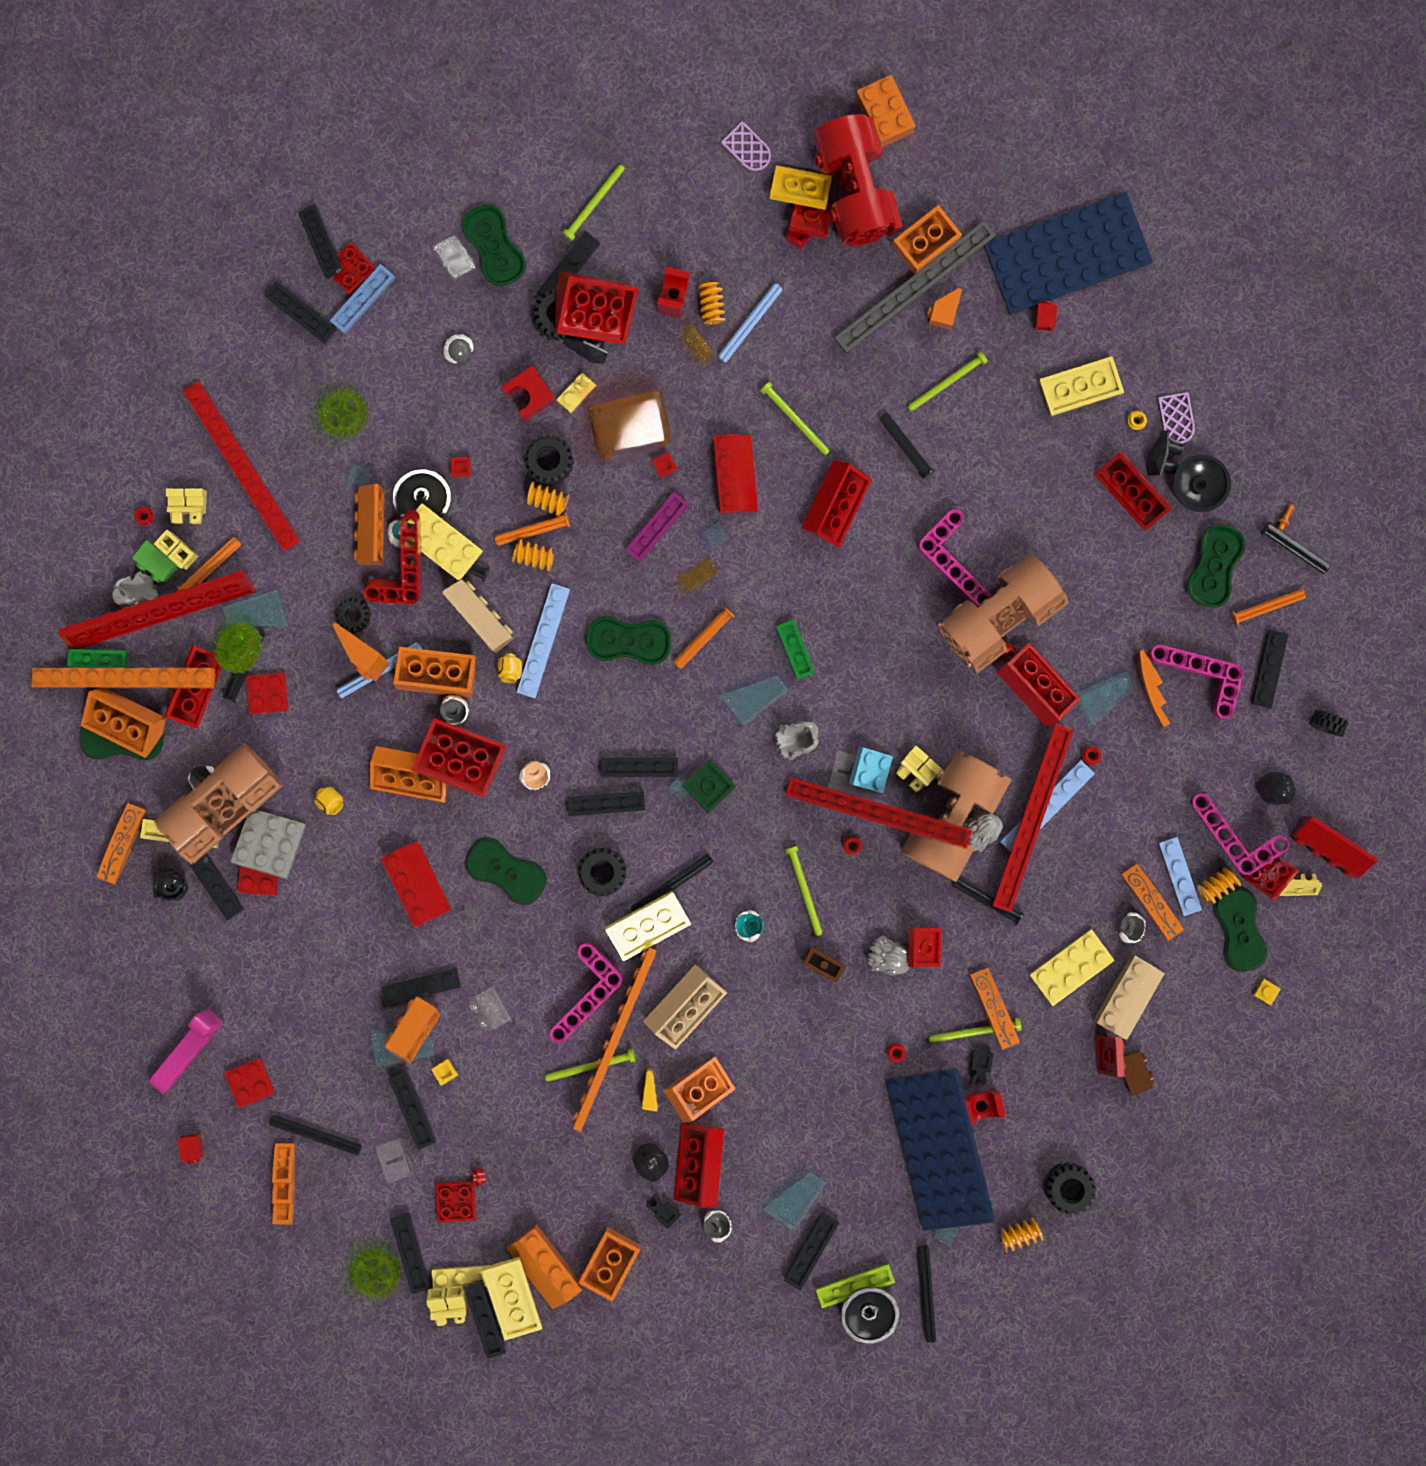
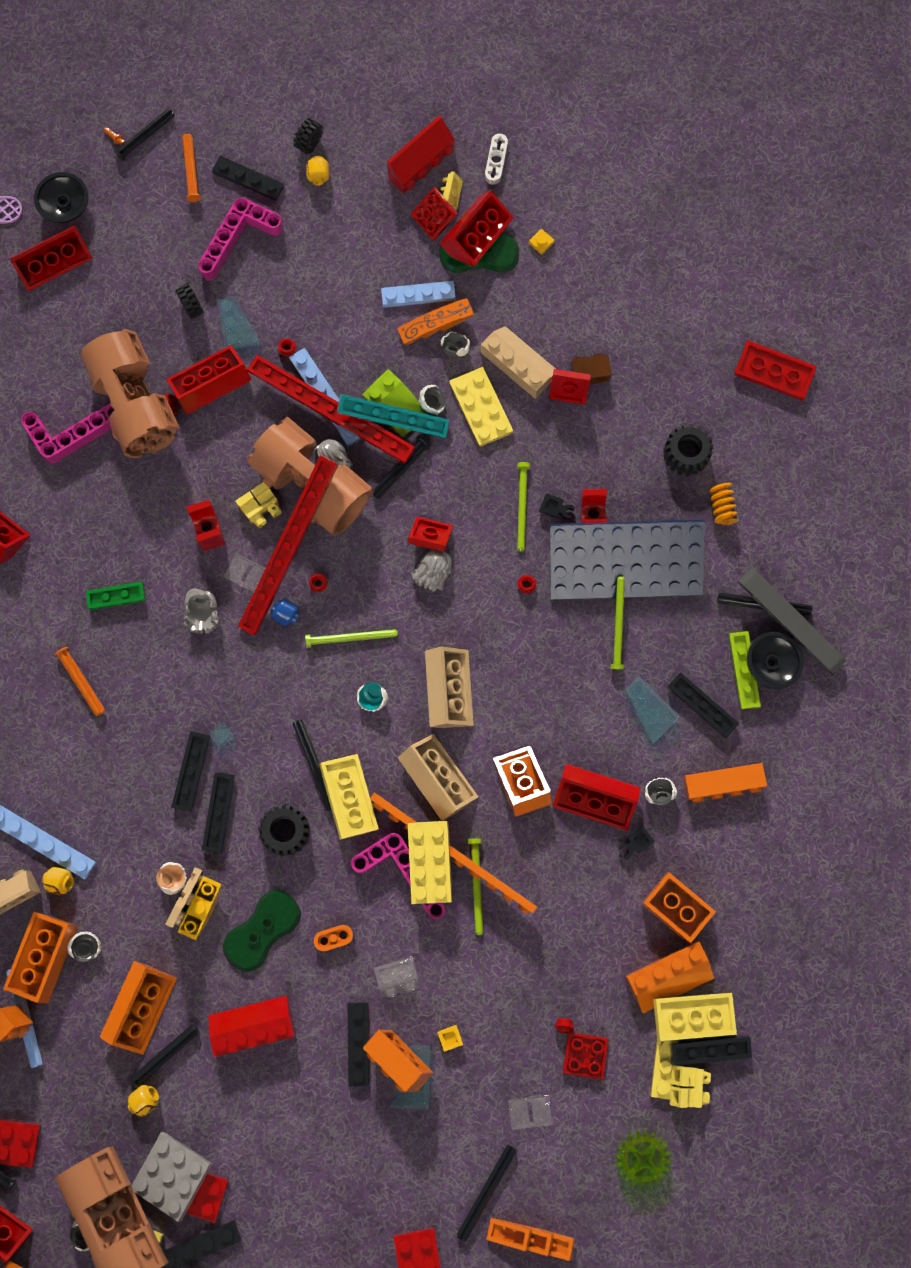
camera: 75 degrees left, 10 degrees down
(372, 809) = (163, 1056): none -> black axle
(410, 1253) = (629, 1115): black plate -> none
(412, 1110) = (482, 1081): black plate -> none
(459, 758) = (131, 950): red slope -> none
(506, 792) = (186, 898): none -> tan plate
(511, 942) = (333, 937): none -> orange plate
(512, 810) = (200, 908): none -> yellow slope
(600, 1019) = (429, 862): none -> light yellow plate
(614, 639) = (67, 740): dark green plate -> none
(649, 1096) = (517, 831): yellow slope -> none
(650, 1162) = (584, 845): black hair -> none
(698, 575) = (19, 674): clear yellow slope -> none
(708, 786) = (226, 707): dark green plate -> none
(740, 1286) = (724, 781): none -> orange brick
(755, 698) = (153, 645): clear light blue wing -> none
(774, 998) = (449, 687): none -> tan slope
(815, 820) = (284, 612): none -> blue head
(823, 964) = (425, 632): reddish brown brick -> none
(833, 1159) = (618, 624): none -> lime bar
(870, 770) = (248, 548): medium azure plate -> none
(894, 717) = (203, 515): none -> red piece
(914, 1324) = (791, 621): none -> dark grey beam
(946, 1235) = (711, 574): clear light blue tile -> none
(995, 1009) = (502, 482): orange slope -> none
(1038, 883) = (392, 416): none -> teal plate
(1054, 880) = (393, 392): none -> lime slope
(1066, 917) = (432, 399): none -> dark grey hair
(1117, 645) = (189, 301): none -> black tyre
(1149, 681) = (230, 281): orange slope -> none
(1158, 459) = (29, 231): black connector -> none
(1176, 1261) = (775, 370): none -> red plate
(1218, 885) = (433, 261): light orange piece -> none
(1220, 551) = (130, 196): dark green plate -> none
(1232, 839) = (393, 237): dark pink beam -> none
(1262, 924) = (477, 229): none -> red slope
(1277, 788) = (357, 193): black hair -> none
(1293, 741) = (317, 170): none -> yellow head
(1363, 919) = (494, 152): none -> white beam

